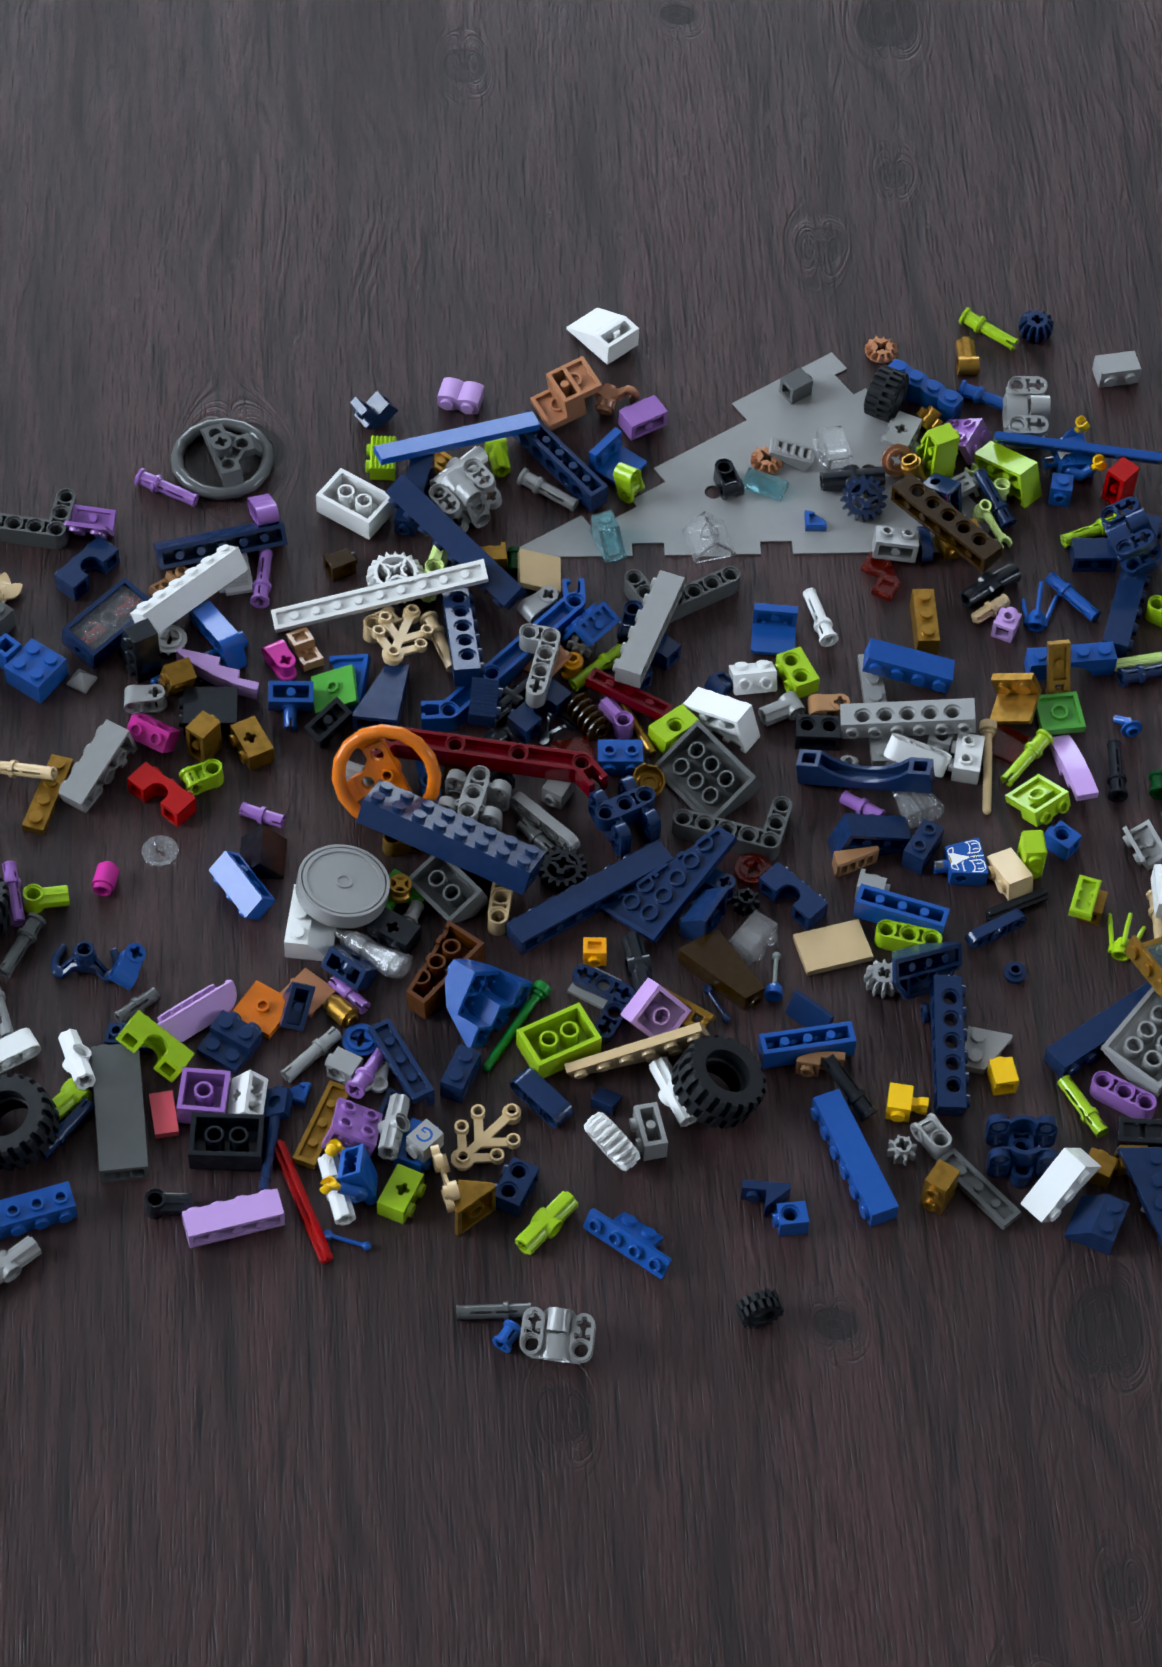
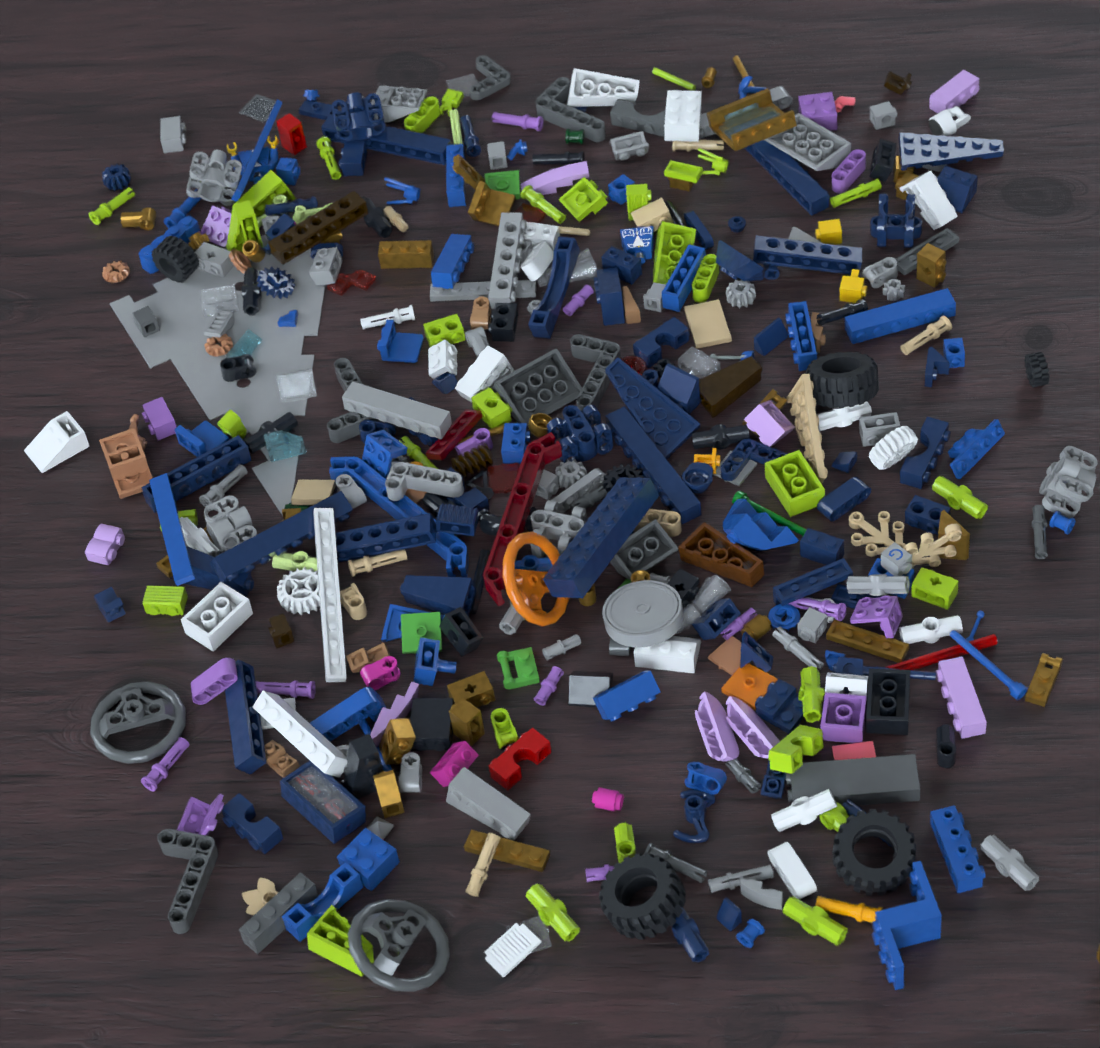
camera: 75 degrees left, 5 degrees down
(113, 677) = (388, 794): none -> slope
(164, 844) = (584, 755): clear gear -> none
(189, 978) = (715, 729): none -> lavender brick
(237, 1061) = (811, 694): none -> lime piece
(248, 1279) = (1017, 689): none -> blue piece
(266, 1311) = (1043, 680): none -> pearl gold plate
(291, 793) = (524, 665): none -> bright green plate
(317, 824) = (561, 647): none -> light grey axle
(355, 1173) = (922, 606): blue torso -> none
(394, 654) = (396, 582): tan plant -> none
(567, 940) = (698, 477): none -> dark blue hat
(573, 814) = (569, 473): none -> light grey gear
(630, 523) = (283, 423): none -> black piece
(644, 1195) = (917, 468): none -> dark blue arch
(707, 989) = (741, 399): dark blue hinge -> none
(830, 1195) = (932, 331): none -> tan pin
(964, 896) = (669, 248): none -> lime wedge
(1009, 620) = (413, 210): lavender brick -> none
(1065, 591) = (391, 172): blue pin -> none
(1113, 701) = (497, 155): none -> light grey brick

